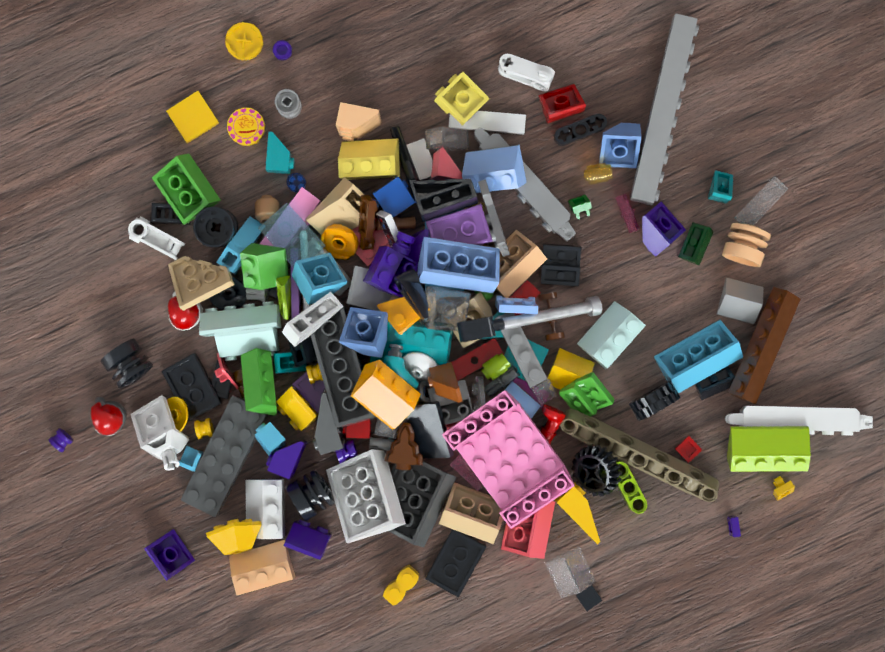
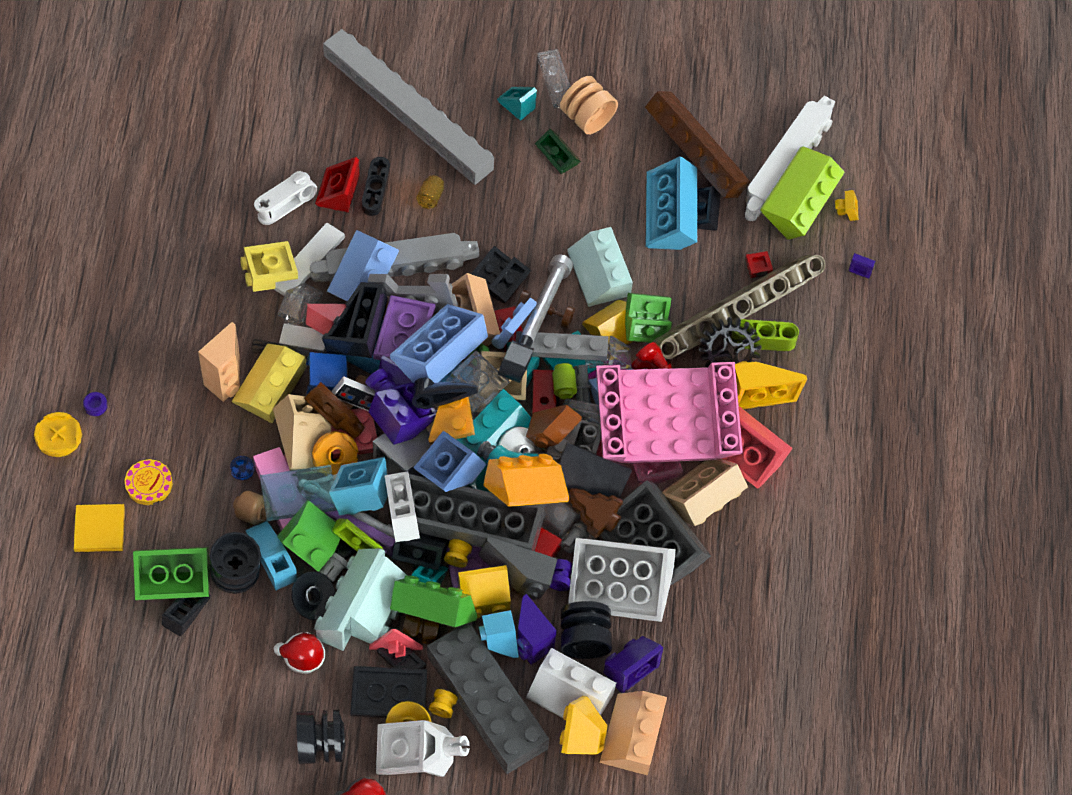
camera: 65 degrees left, 25 degrees down
(155, 238) = (202, 635): white piece -> none
(190, 458) = (472, 731): medium azure panel -> none
(197, 280) = (280, 609): tan plate -> none
(278, 157) = (202, 465): teal slope -> none
(288, 103) = (156, 424): light grey wheel -> none
(397, 588) = (738, 599): yellow brick -> none
(455, 562) = (745, 538): black tile -> none
(570, 572) = (821, 438): clear slope -> none
(580, 204) = (451, 223): green tile -> none
(589, 598) = (858, 434): black tile -> none
(621, 145) = (419, 156): medium blue slope -> none
(627, 213) = (488, 190): clear pink pin -> none
(654, 400) = (691, 259): black bush -> none
(660, 229) = (525, 170): dark purple slope -> none
(740, 301) = (640, 144): light grey slope -> none

